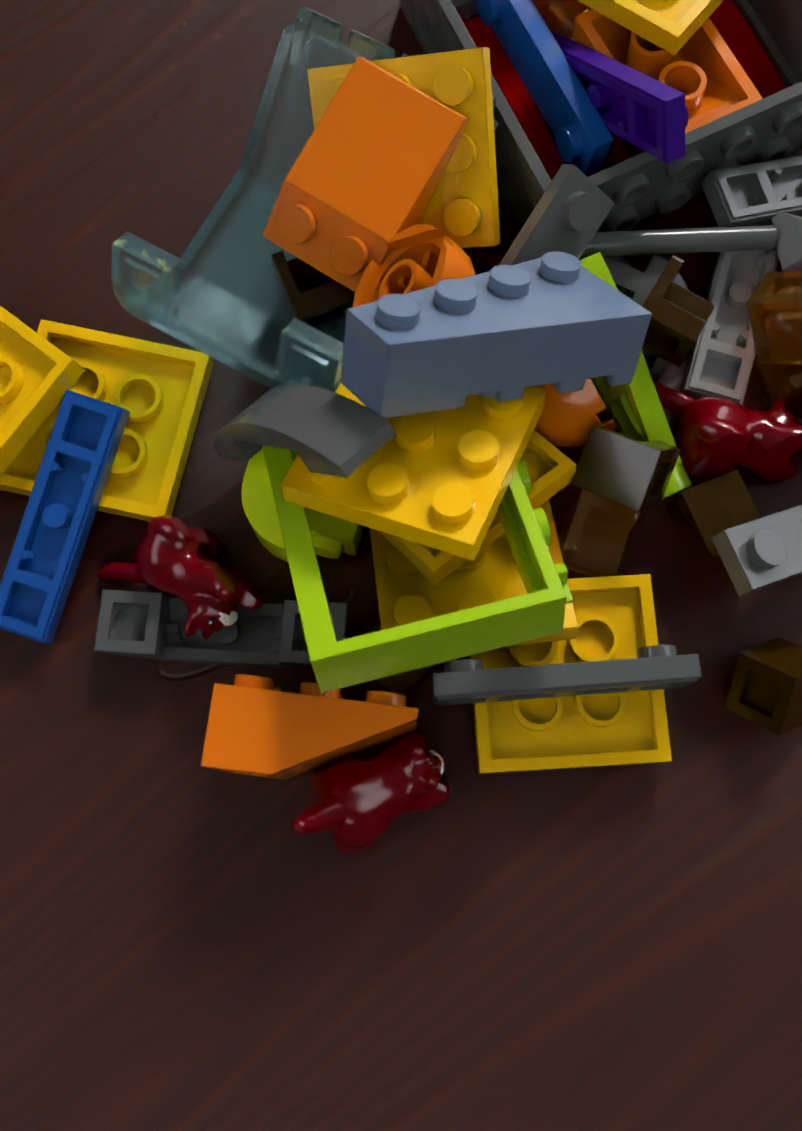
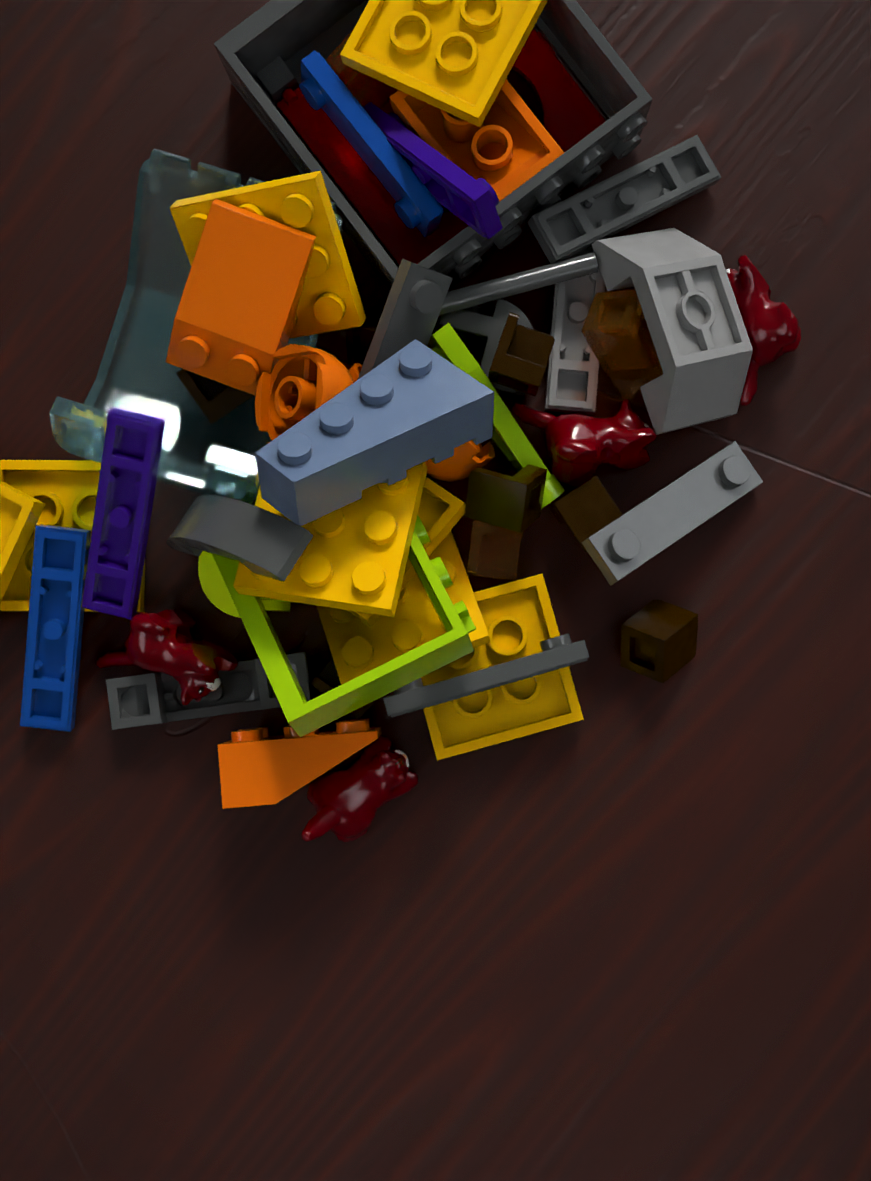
camera: 15 degrees left, 10 degrees up
(170, 390) = (123, 512): none -> dark purple plate

